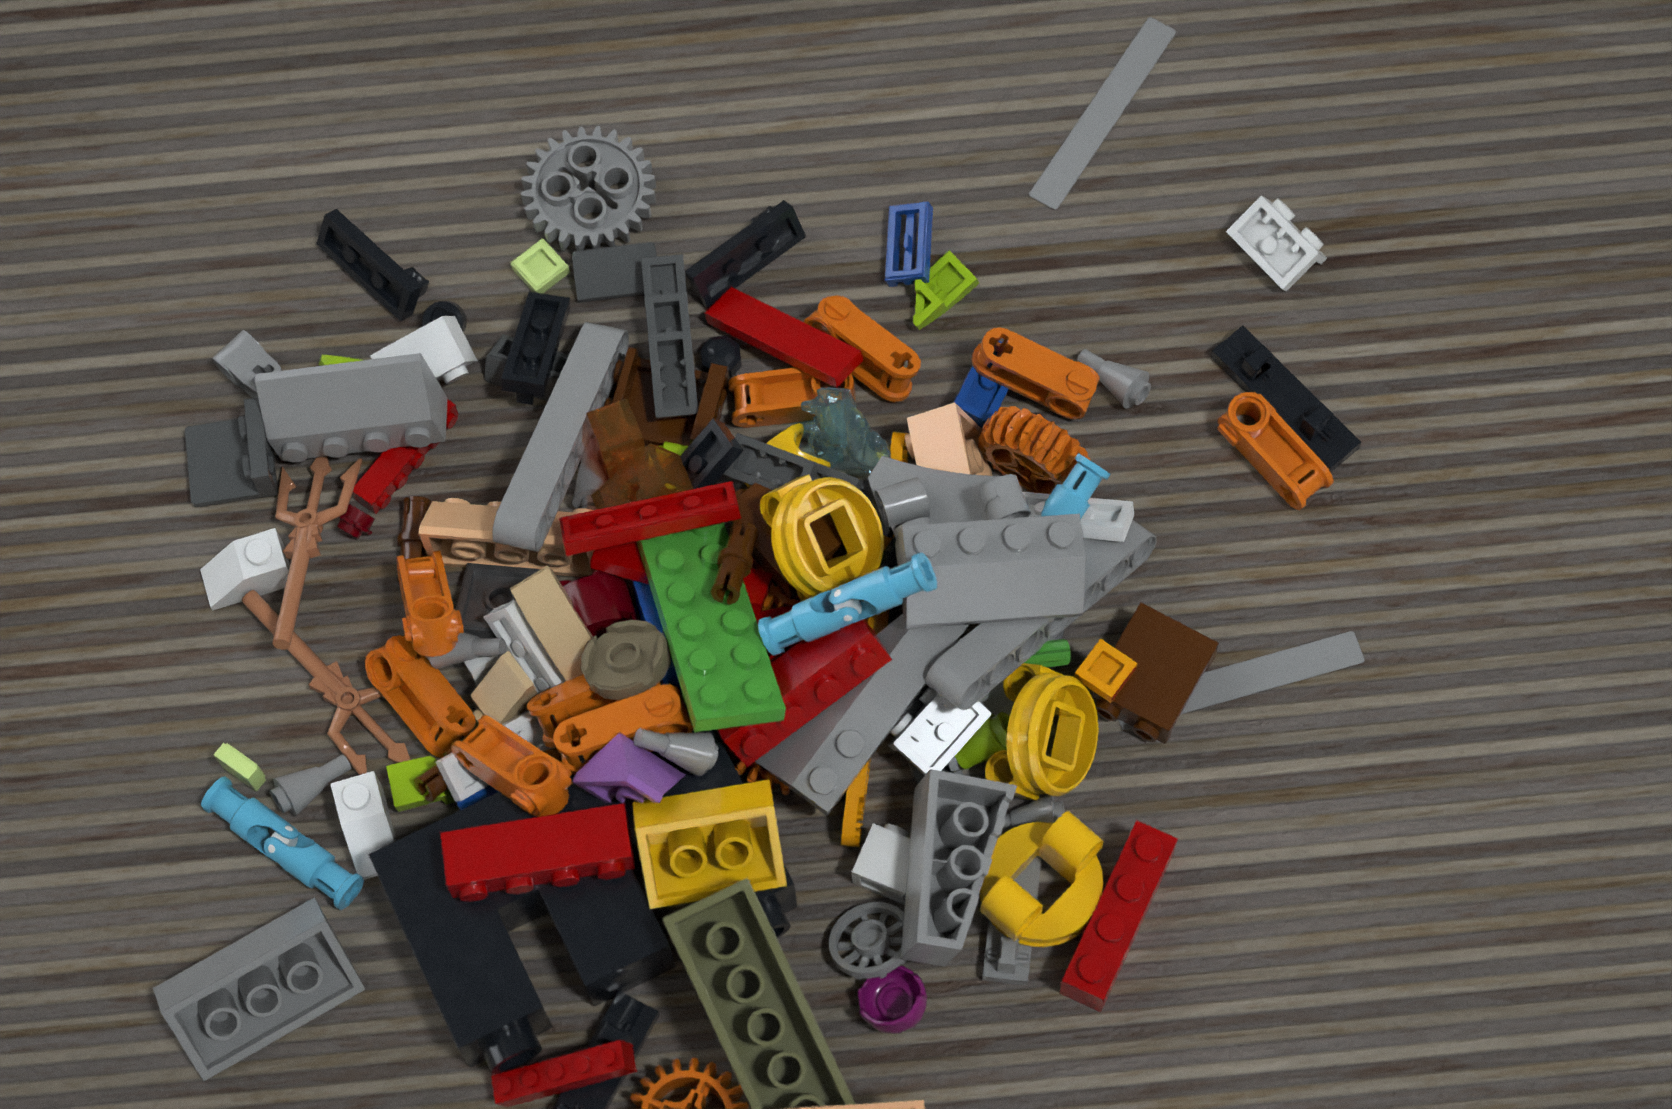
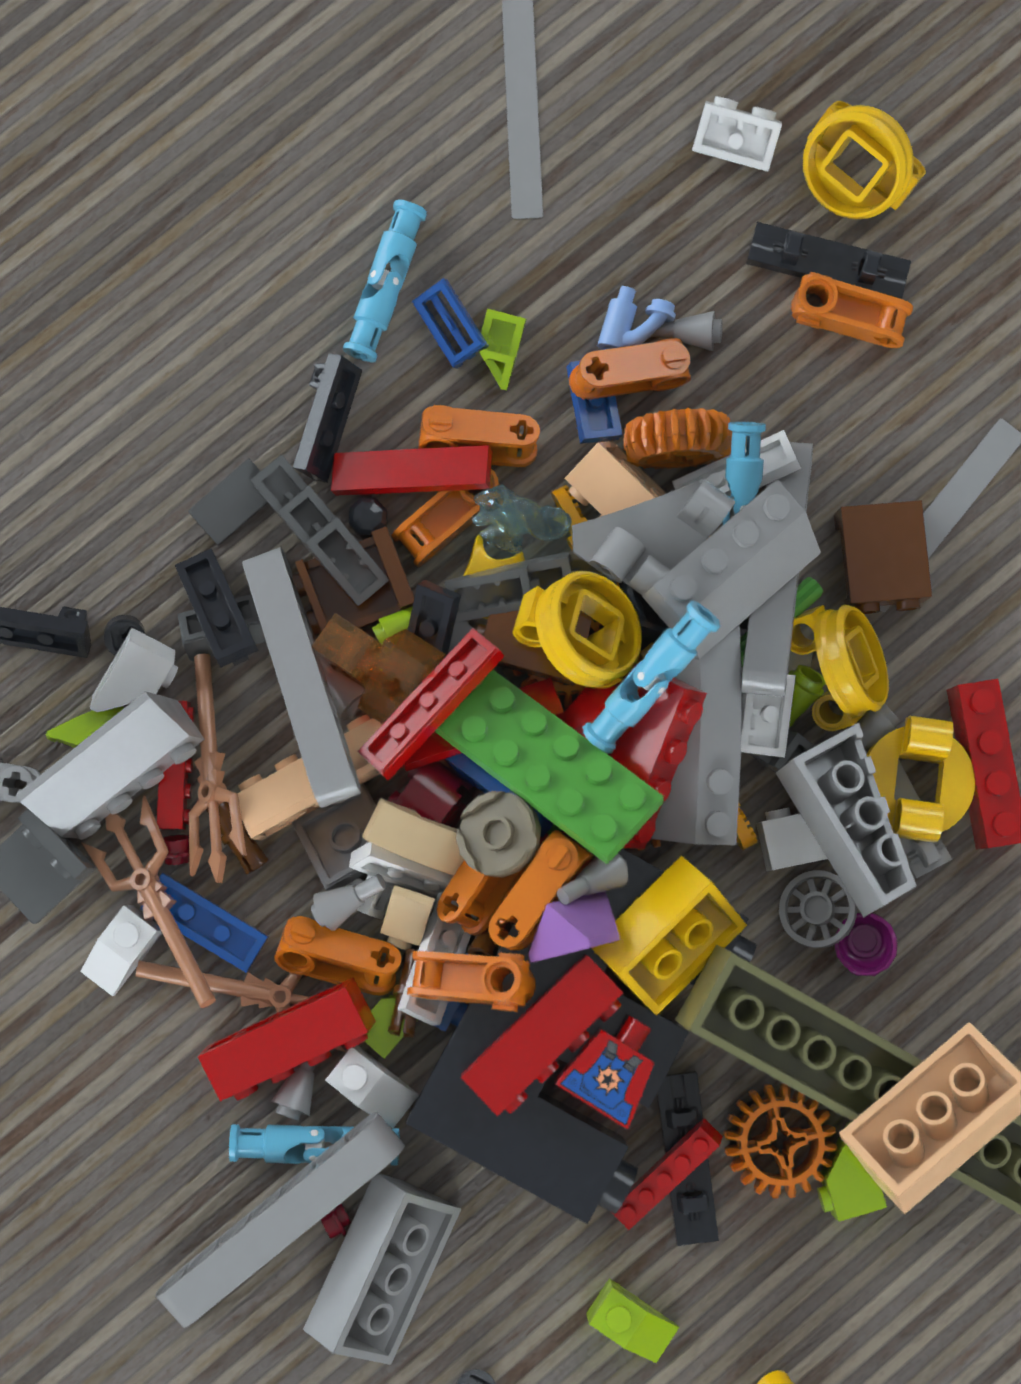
camera: 45 degrees left, 15 degrees up
(204, 877) = (280, 1219): none -> light grey beam
(240, 766) = (237, 1109): yellowish green tile -> none
(250, 916) = (336, 1221): none -> dark red plate
(326, 732) = (287, 1040): none -> red brick
(337, 603) = (213, 926): none -> blue plate
(420, 485) = (211, 788): none -> nougat piece
(430, 615) = (297, 887): orange piece -> none
(540, 267) = (166, 537): yellowish green tile -> none
(573, 923) = (610, 1072): none -> torso
(612, 164) = (164, 411): light grey gear -> none
(734, 562) = (528, 697): reddish brown pin -> none
(862, 186) = (383, 286): none -> medium azure piece
(1065, 328) = (620, 316): none -> light blue plant
(1105, 670) = (858, 582): light orange plate -> none
(1386, 356) = (880, 137): none -> yellow piece

